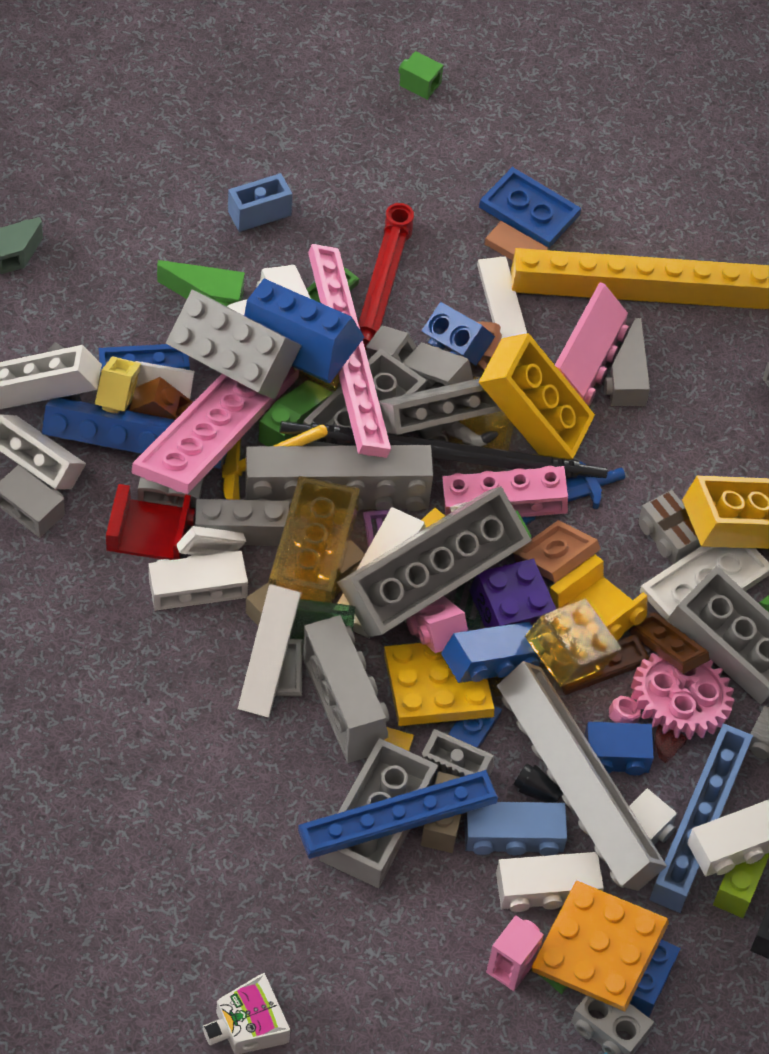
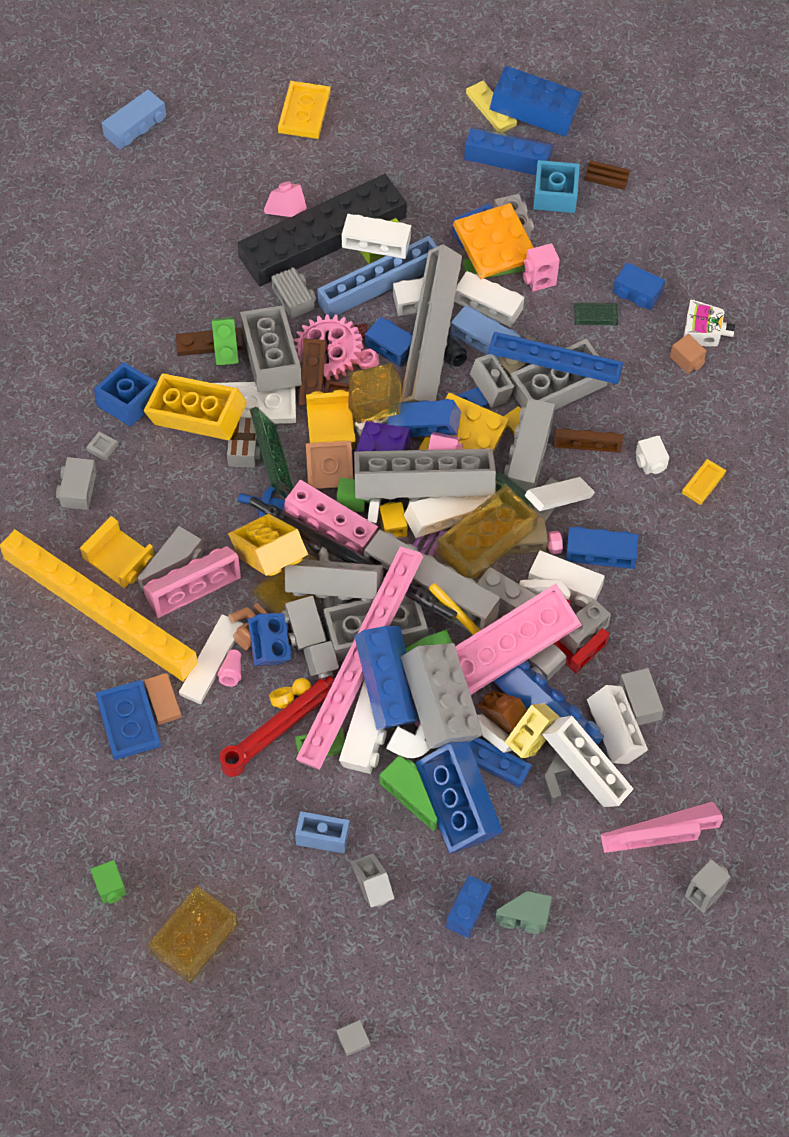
camera: 140 degrees left, 5 degrees up
(73, 219) = (468, 906): none -> blue brick
(104, 80) = (353, 1038): none -> light grey tile
(115, 803) = (704, 481): none -> yellow tile
(136, 296) = (458, 796): none -> blue slope
(139, 532) = (593, 619): none -> light grey brick
(182, 640) = (602, 547): none -> blue brick
(183, 196) = (372, 880): none -> light grey slope
(198, 789) = (652, 455): none -> white brick
(240, 616) = (555, 543): none -> bright pink tile
(242, 958) = (688, 354): none -> nougat brick
(289, 762) = (588, 440): none -> reddish brown plate
(308, 69) = (193, 934): none -> clear yellow brick
(375, 1022) = (638, 286): none -> blue brick
(401, 303) = (285, 695): none -> yellow plate
(403, 954) = (596, 314): none -> clear green tile
(474, 300) = (231, 669): none -> bright pink cone
(625, 519) = (272, 452): none -> clear green tile
(687, 348) = (116, 553): none -> yellow panel

